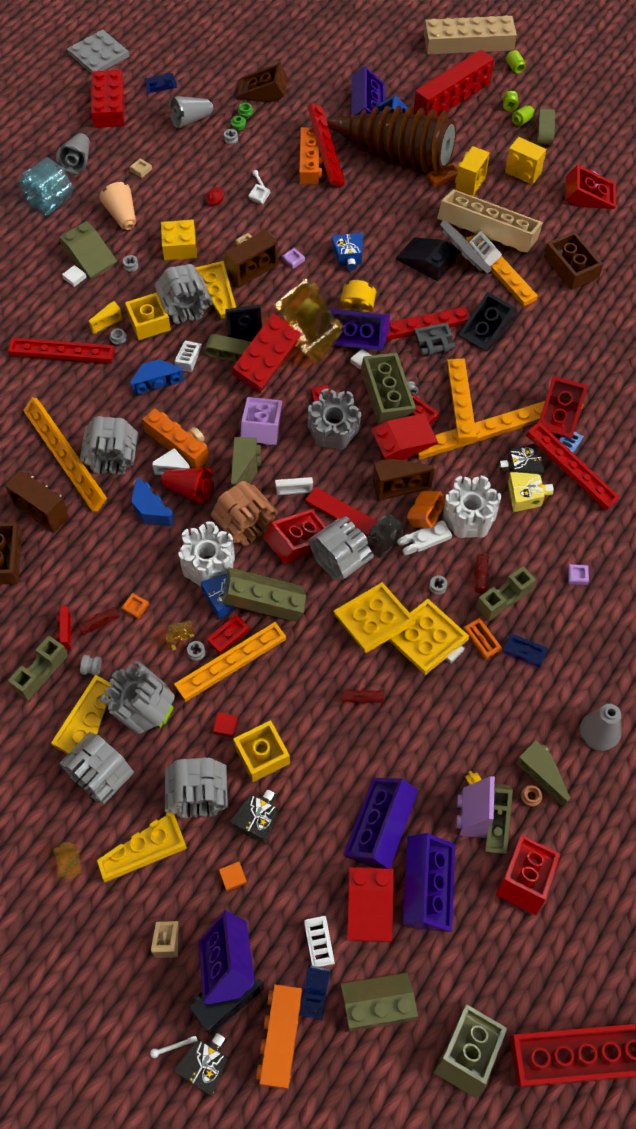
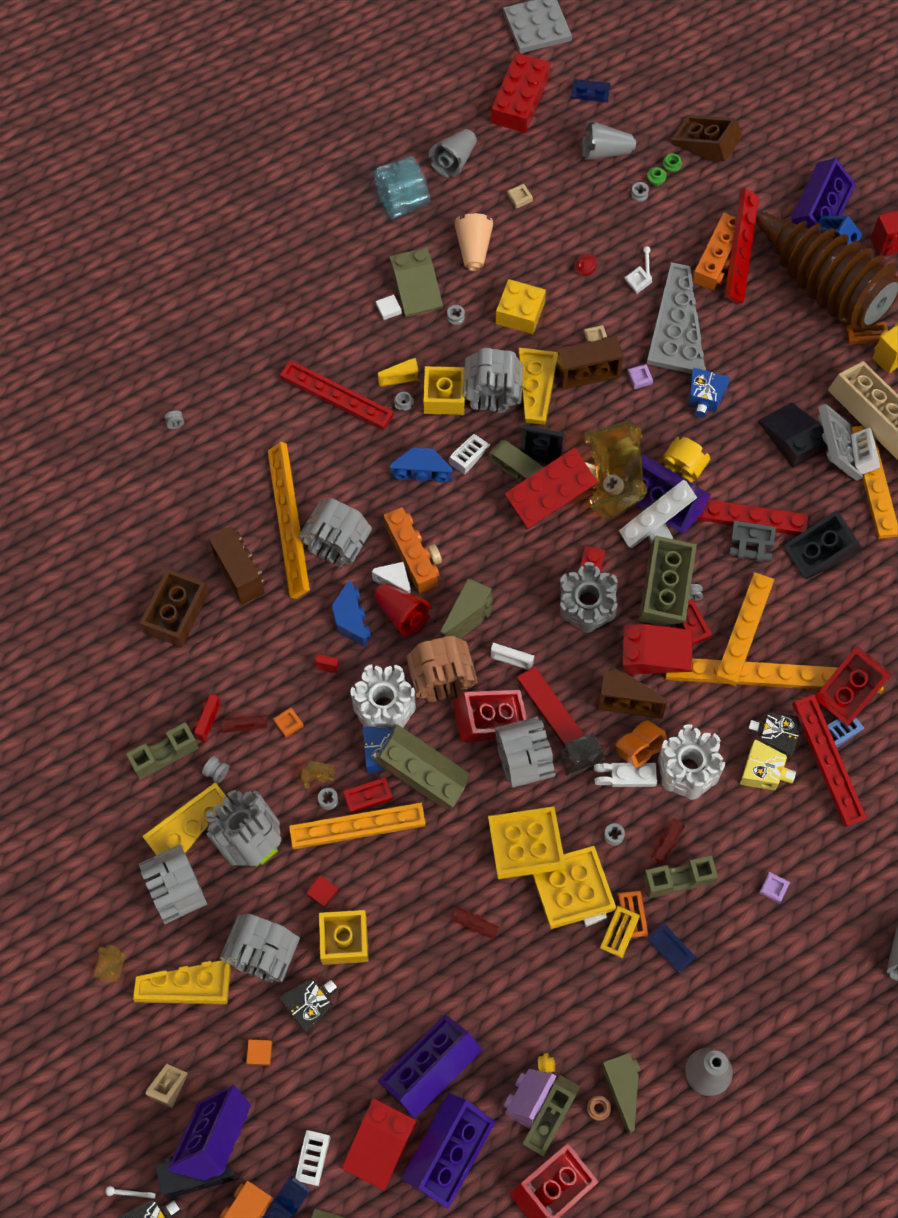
camera: 25 degrees right, 5 degrees up
(147, 548) = (327, 663): none -> red tile
(261, 420) = (512, 564): lavender slope -> none
(305, 217) = (677, 329): none -> light grey wing
(309, 330) = (618, 488): none -> light grey bush
(357, 341) = (657, 514): none -> white plate
(480, 671) = (627, 936): none -> yellow tile

